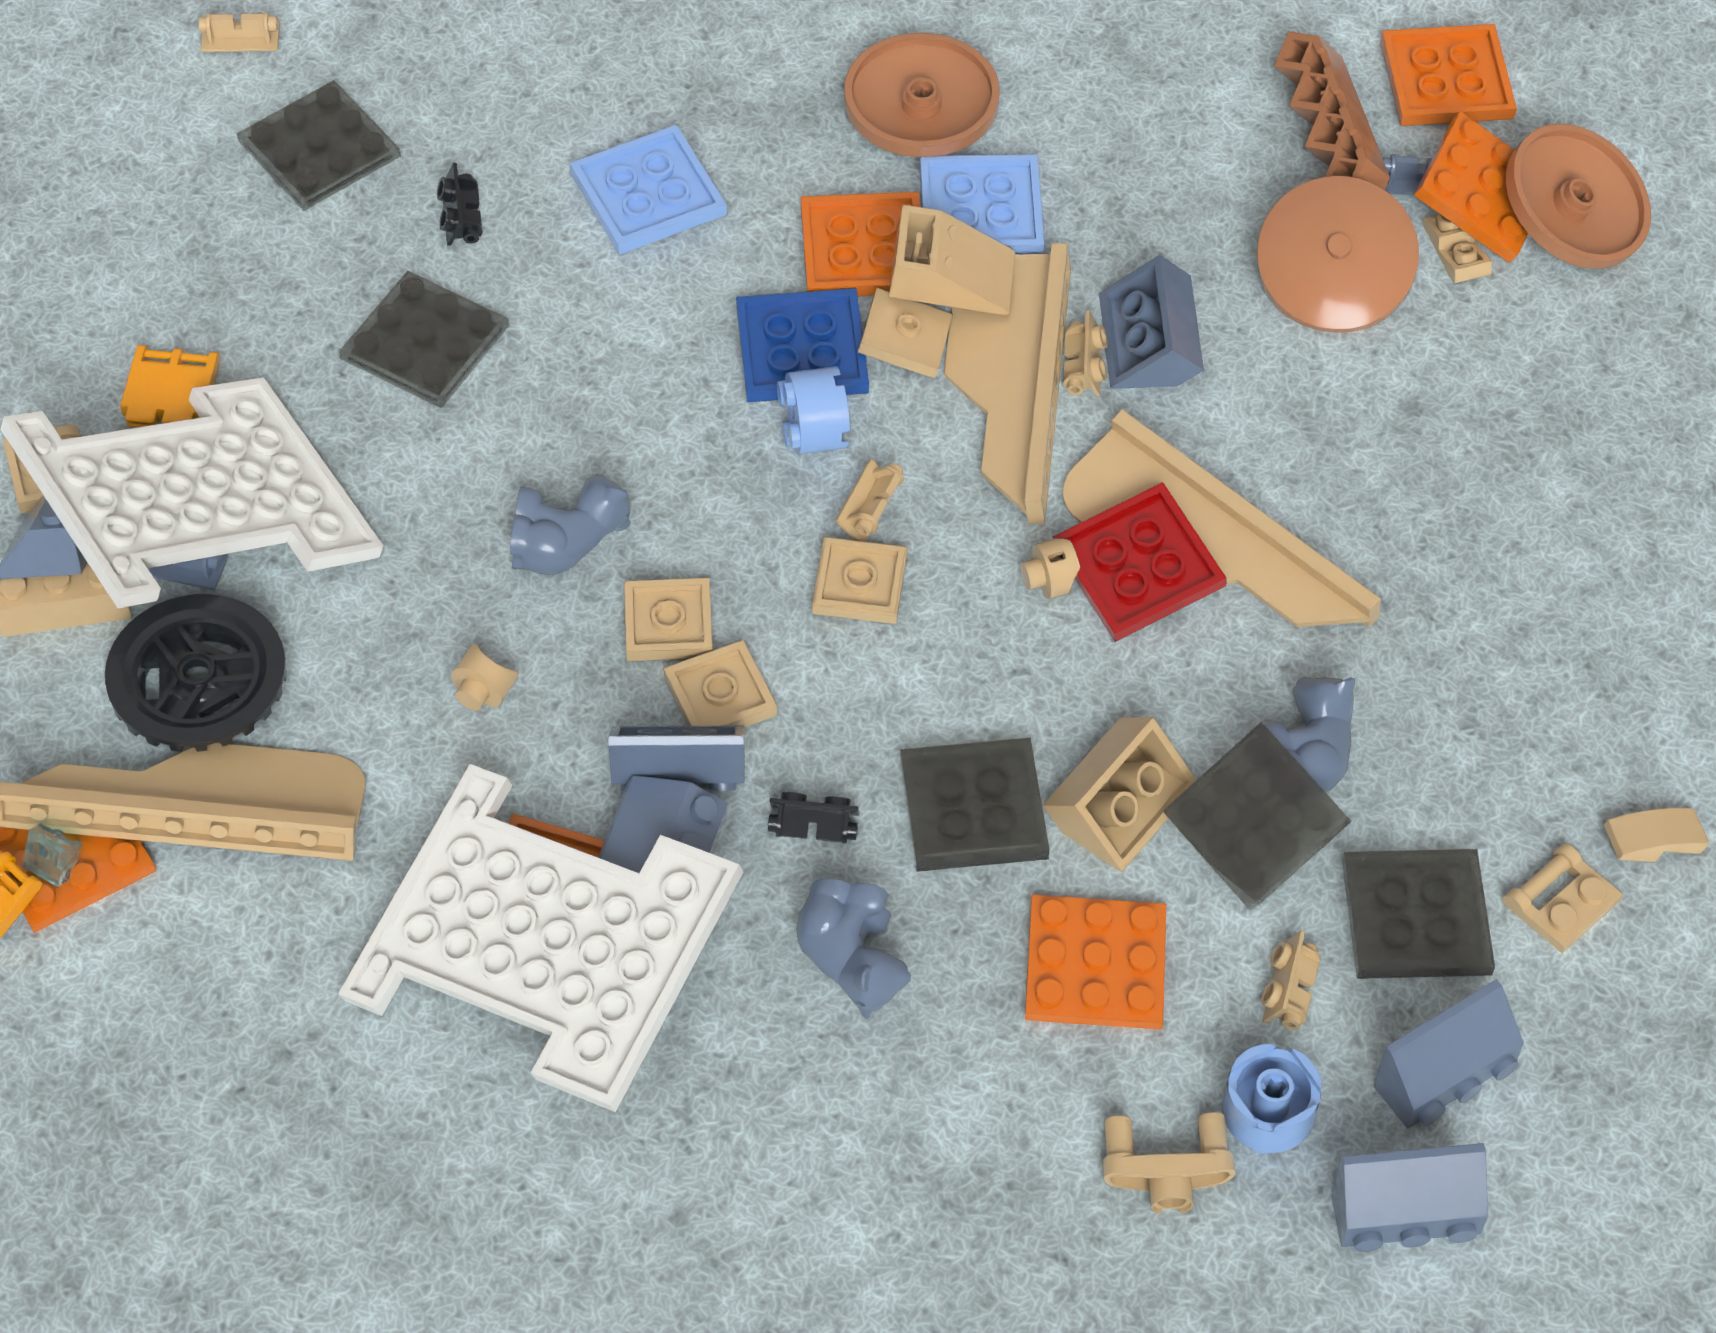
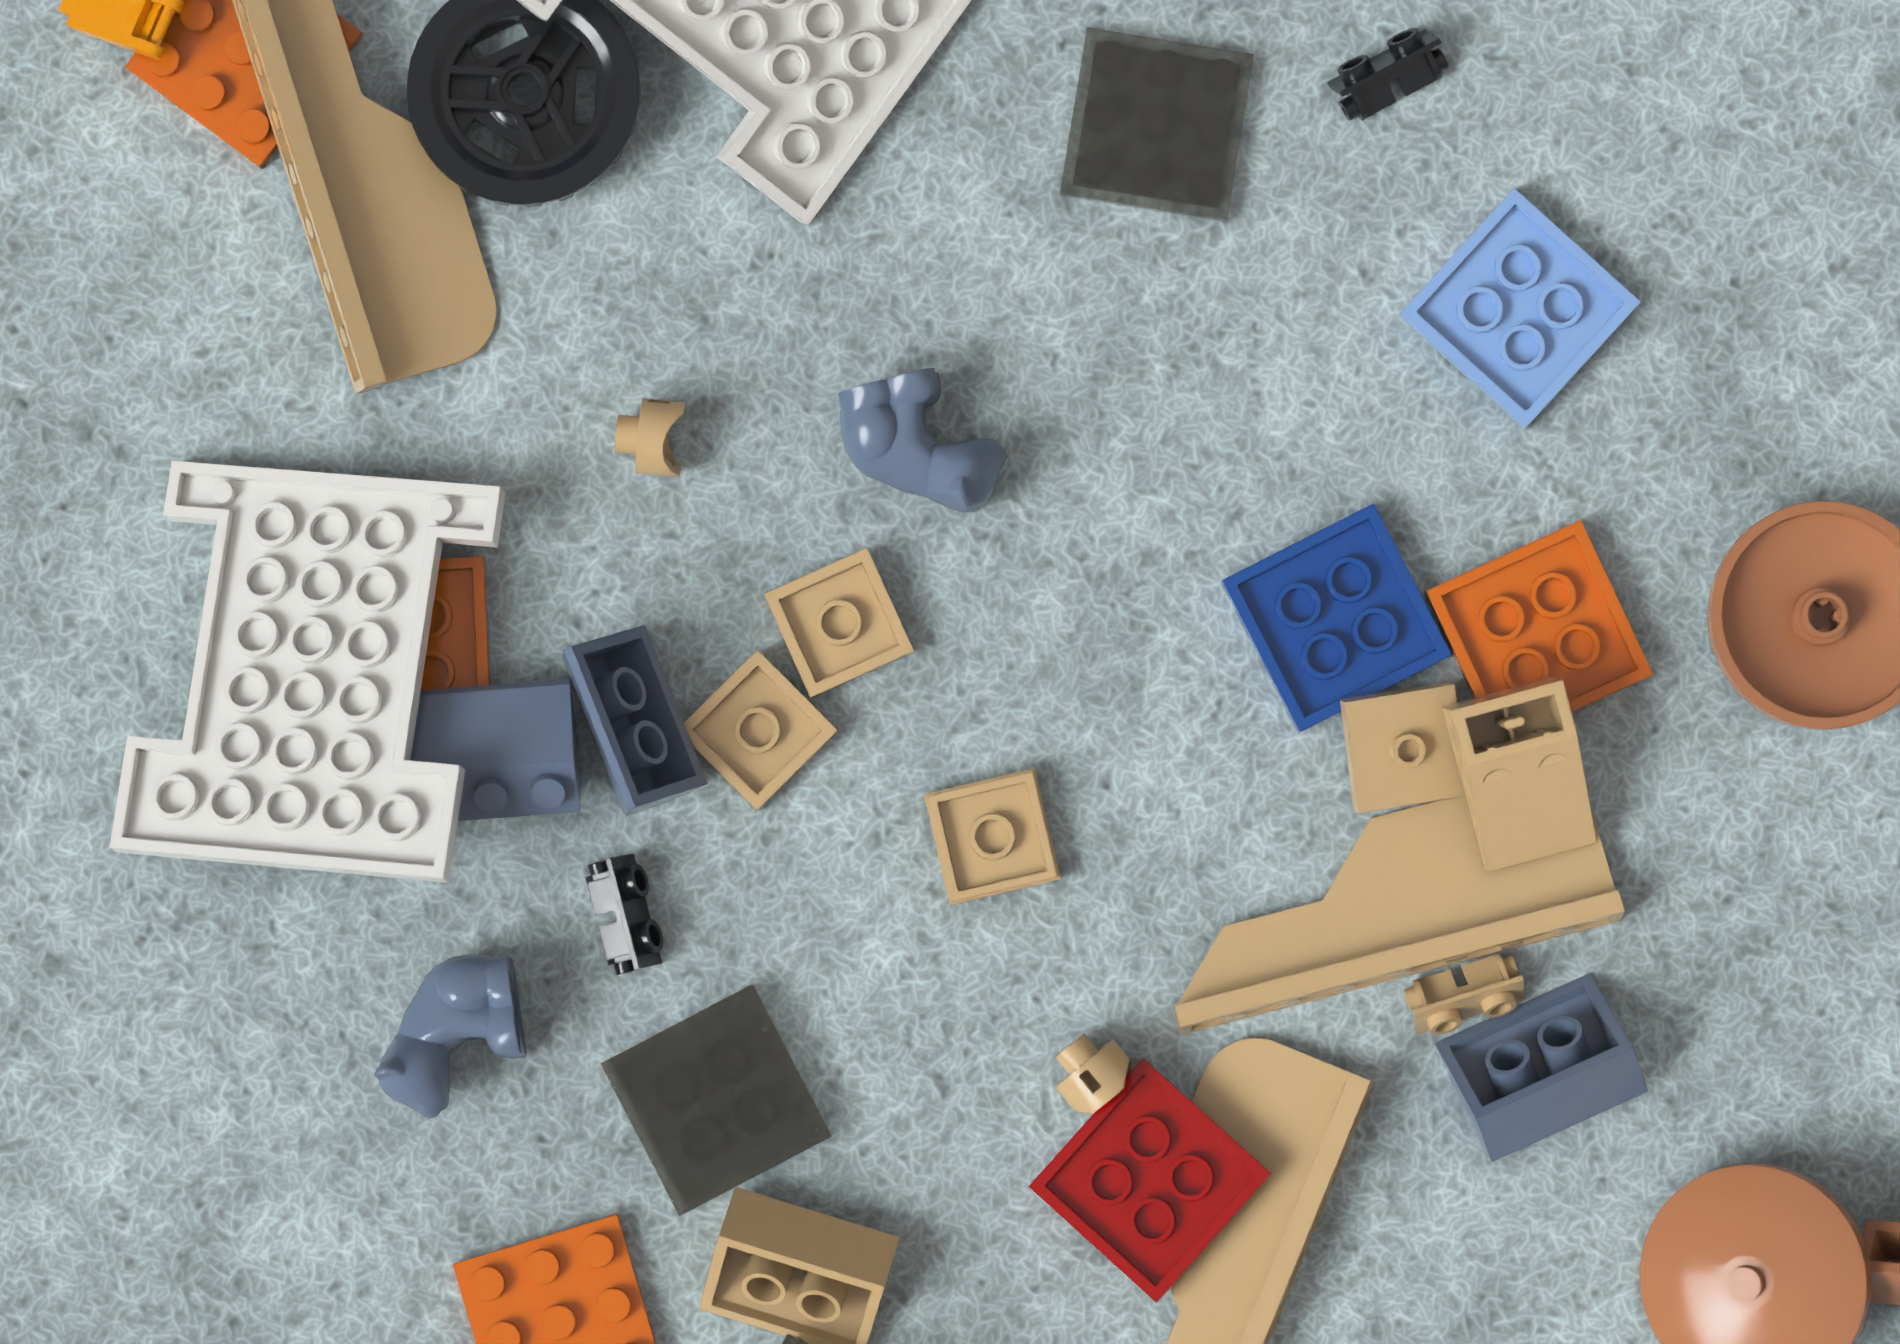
camera: 75 degrees right, 30 degrees up
(50, 854) = (201, 47): clear light blue tile -> none
(814, 410) = (1211, 682): light blue brick -> none
(868, 499) = (1137, 803): tan hinge -> none
(989, 194) = (1673, 765): light blue plate -> none

